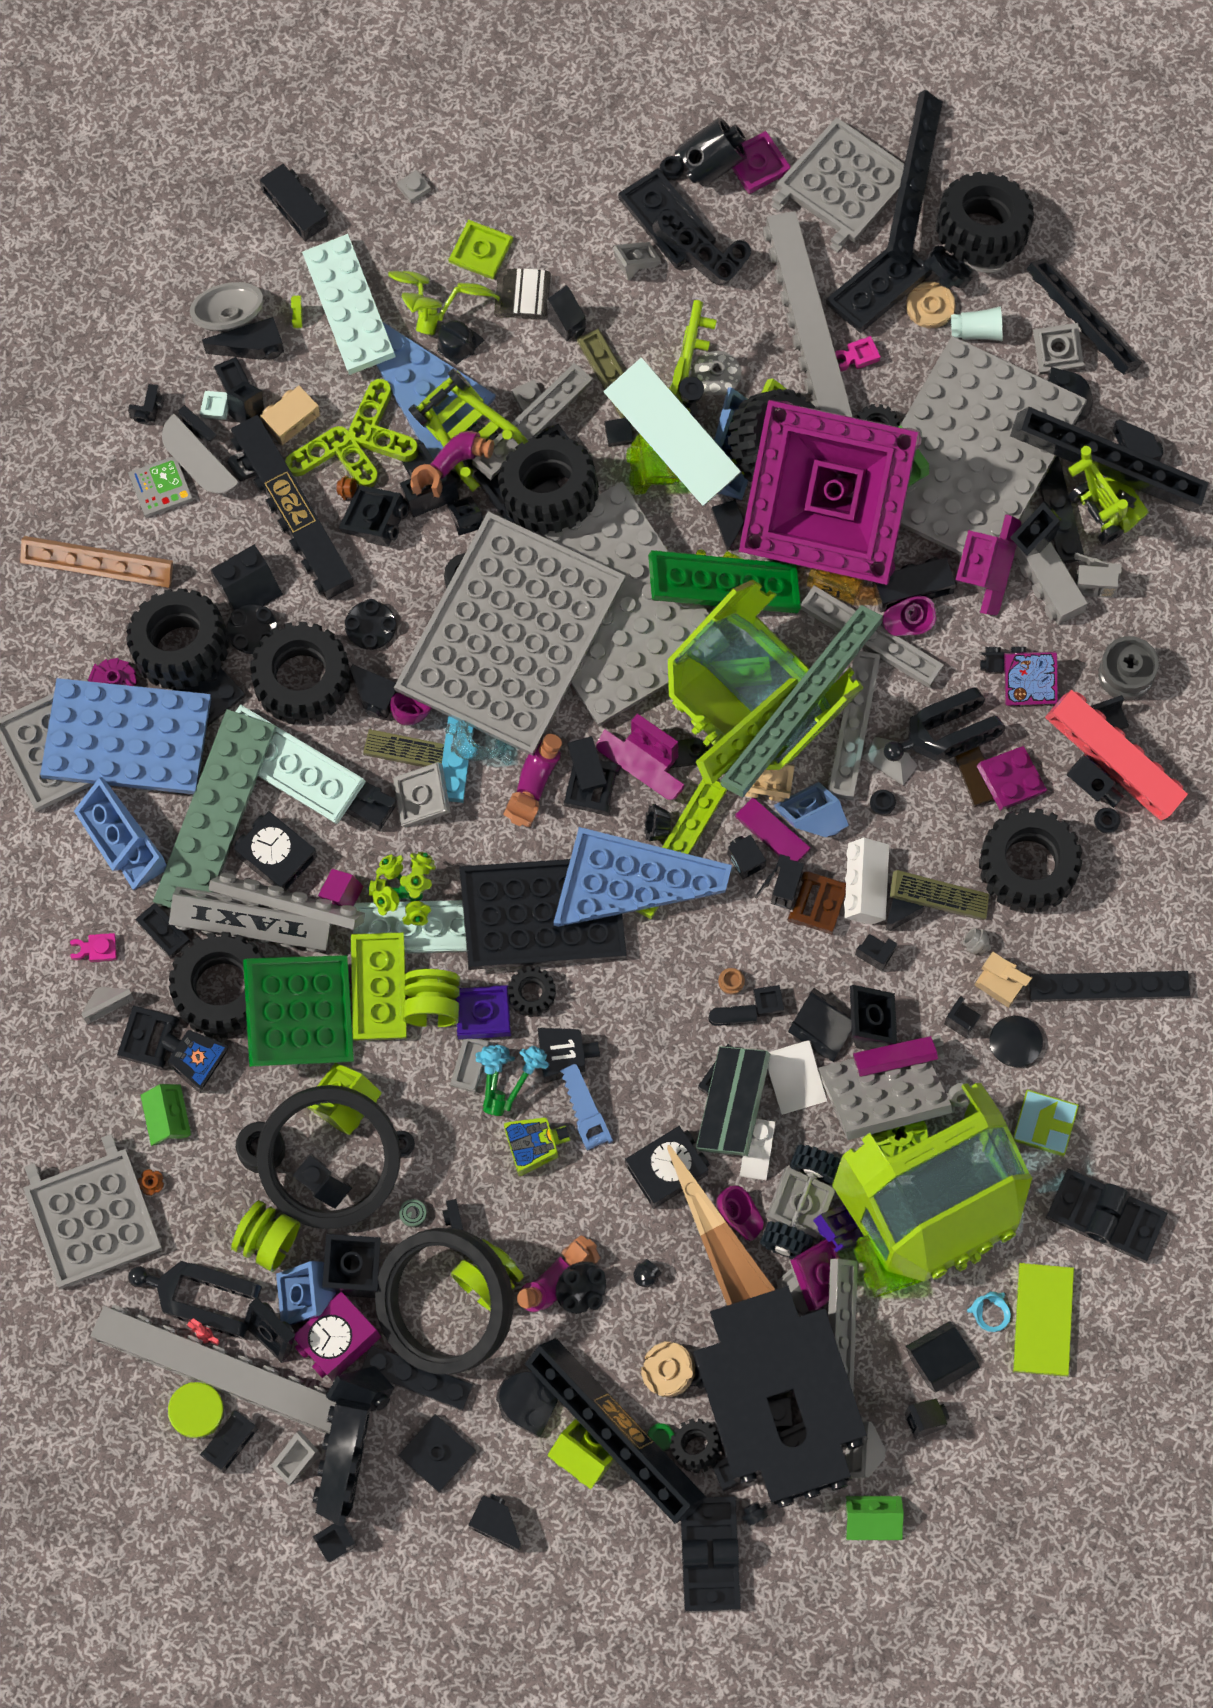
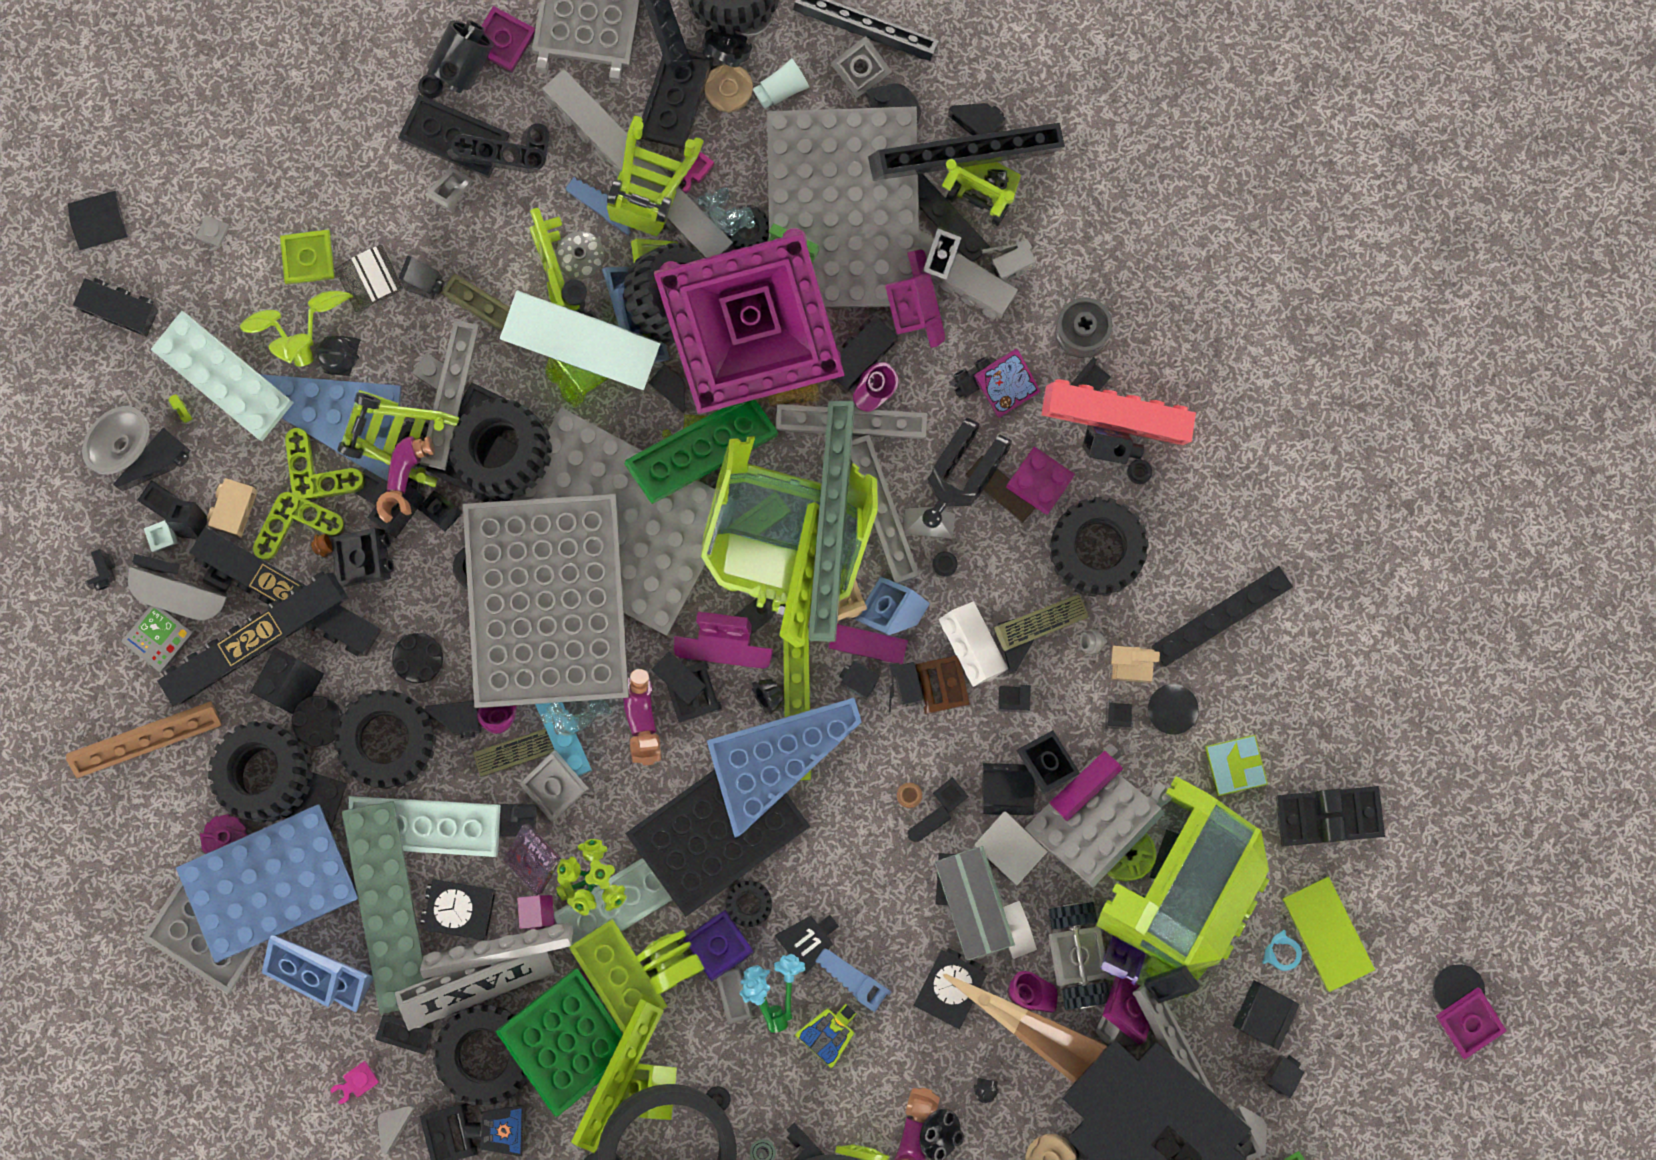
camera: 30 degrees left, 10 degrees up
(240, 526) = (252, 639): none -> black brick
(322, 127) = (97, 220): none -> black slope
(328, 1064) = (617, 1075): none -> lime plate
(365, 843) = (532, 859): none -> clear purple tile
(618, 432) = (527, 360): black tile -> none
(762, 343) = (594, 200): none -> medium blue piece
(785, 361) = (635, 213): none -> lime hand
(863, 407) = (730, 220): none -> clear light blue animal
(869, 1268) = (1171, 984): none -> black tile
(1130, 1474) = (1471, 1023): none -> magenta tile
(1137, 1439) = (1455, 983): none -> black tile

